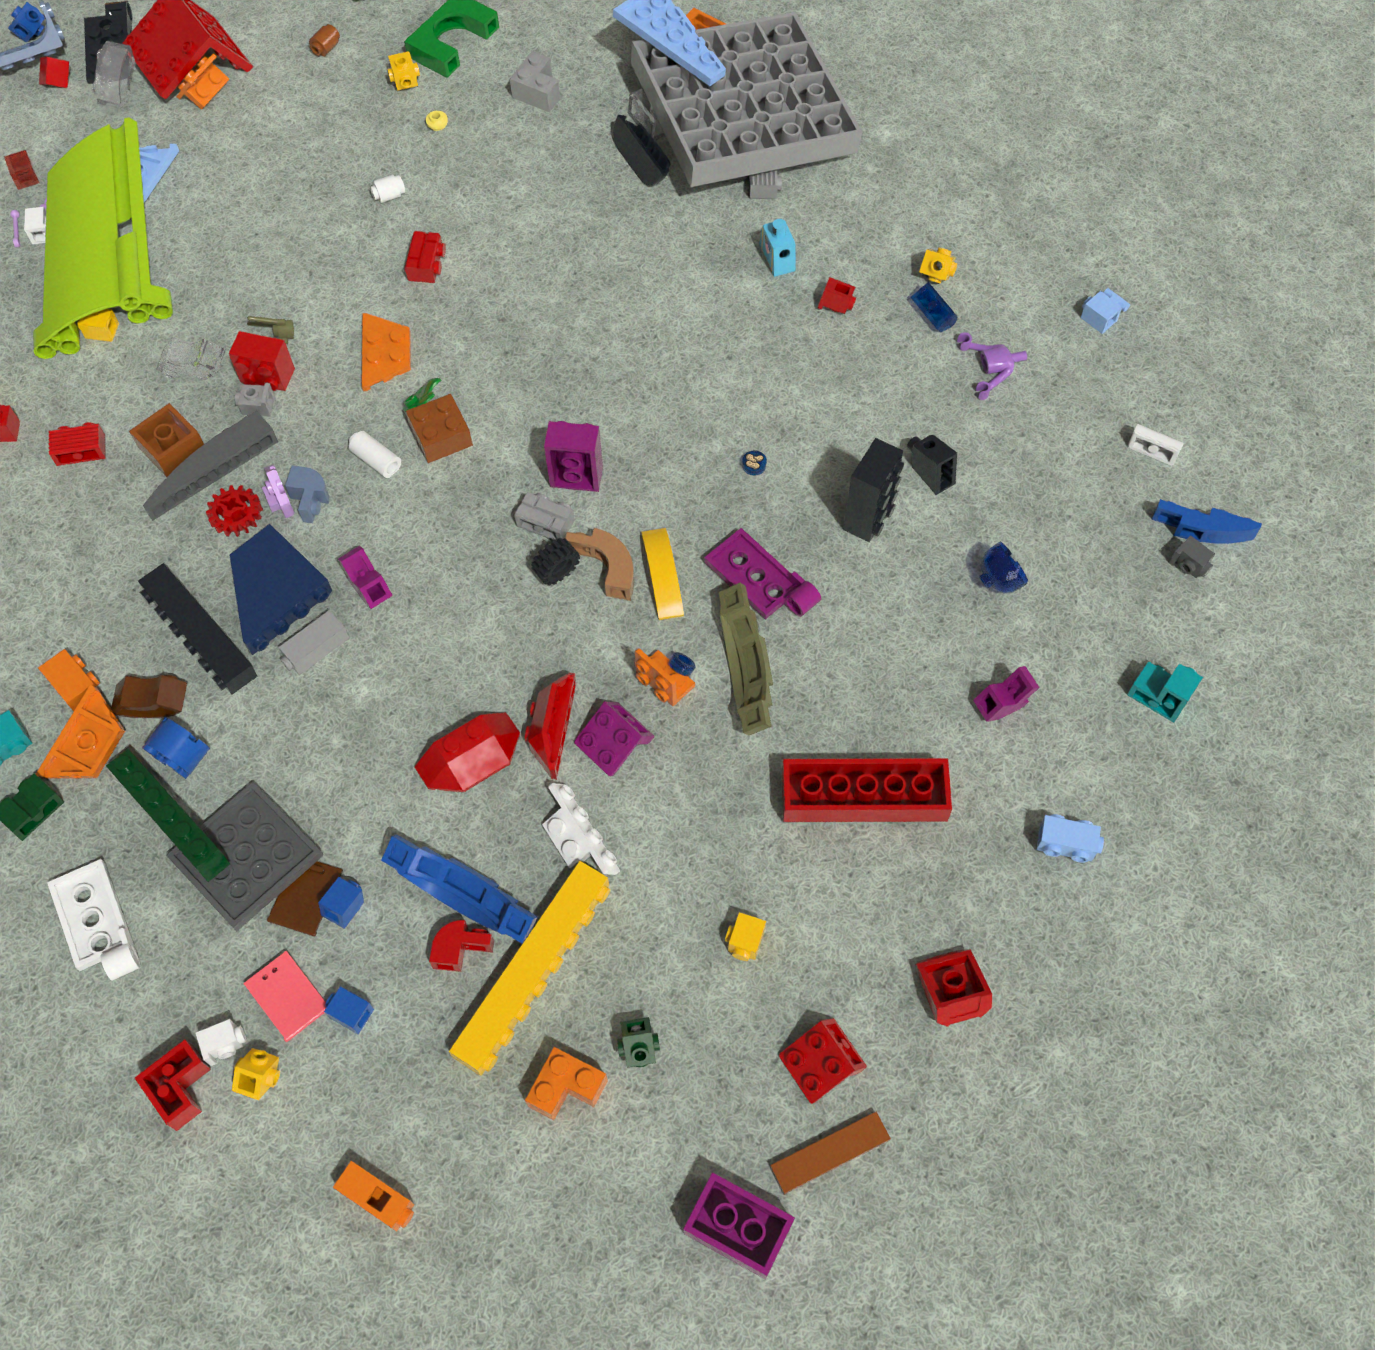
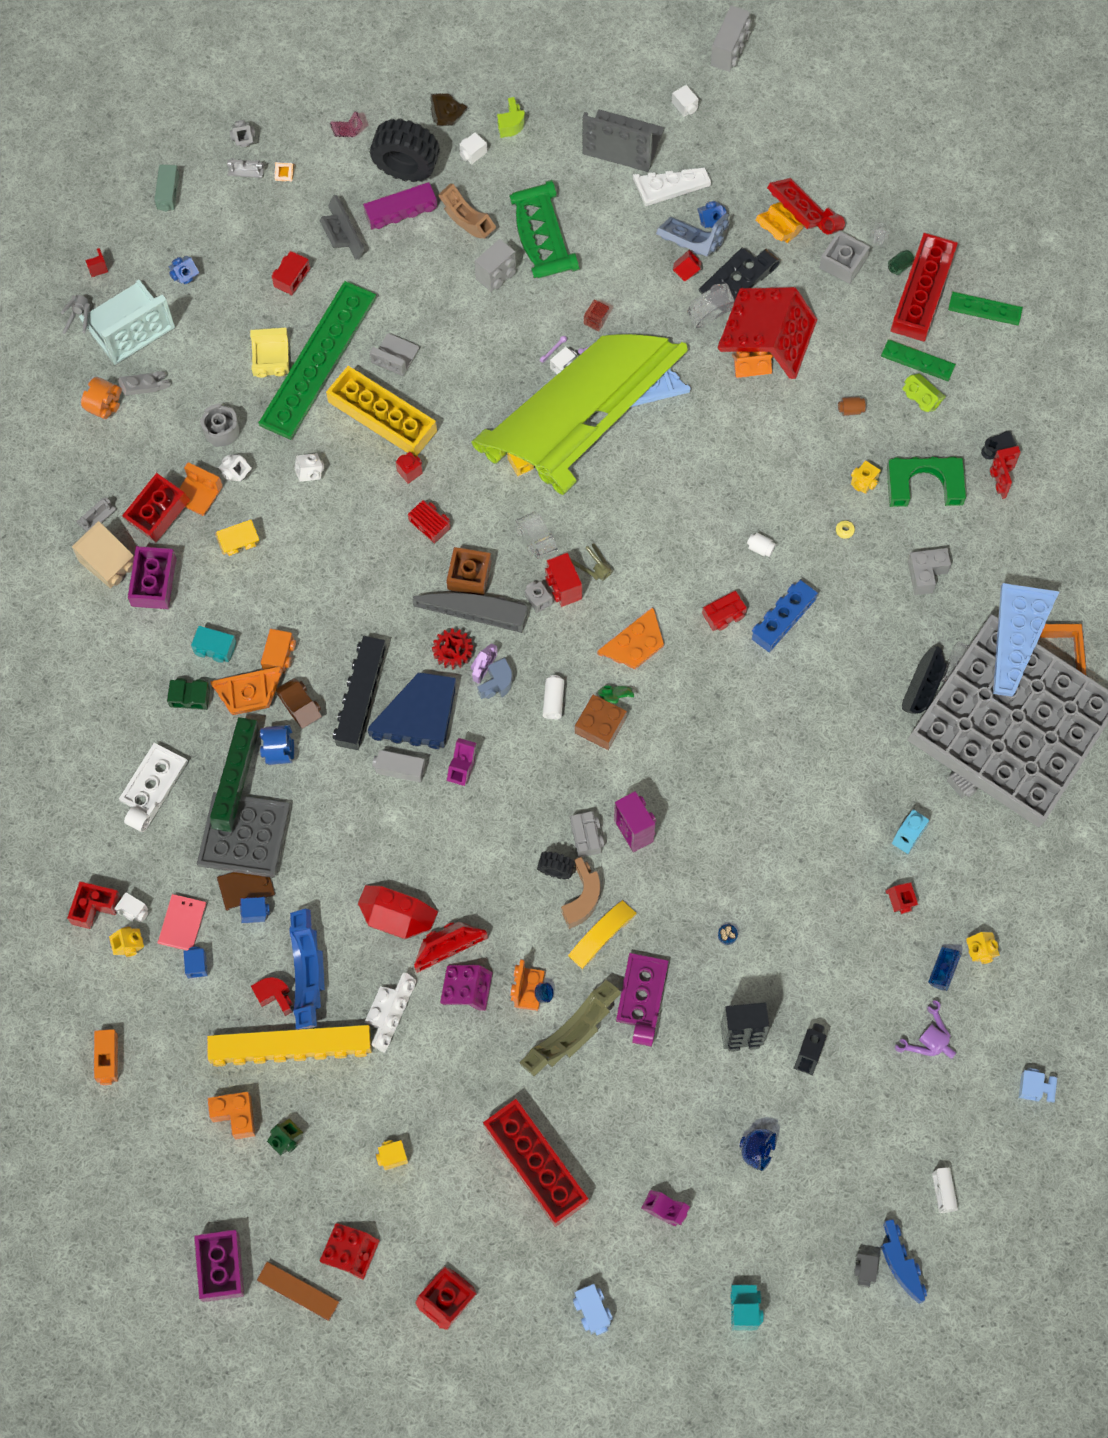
camera: 55 degrees right, 5 degrees up
(476, 214) = (769, 639): none -> blue brick

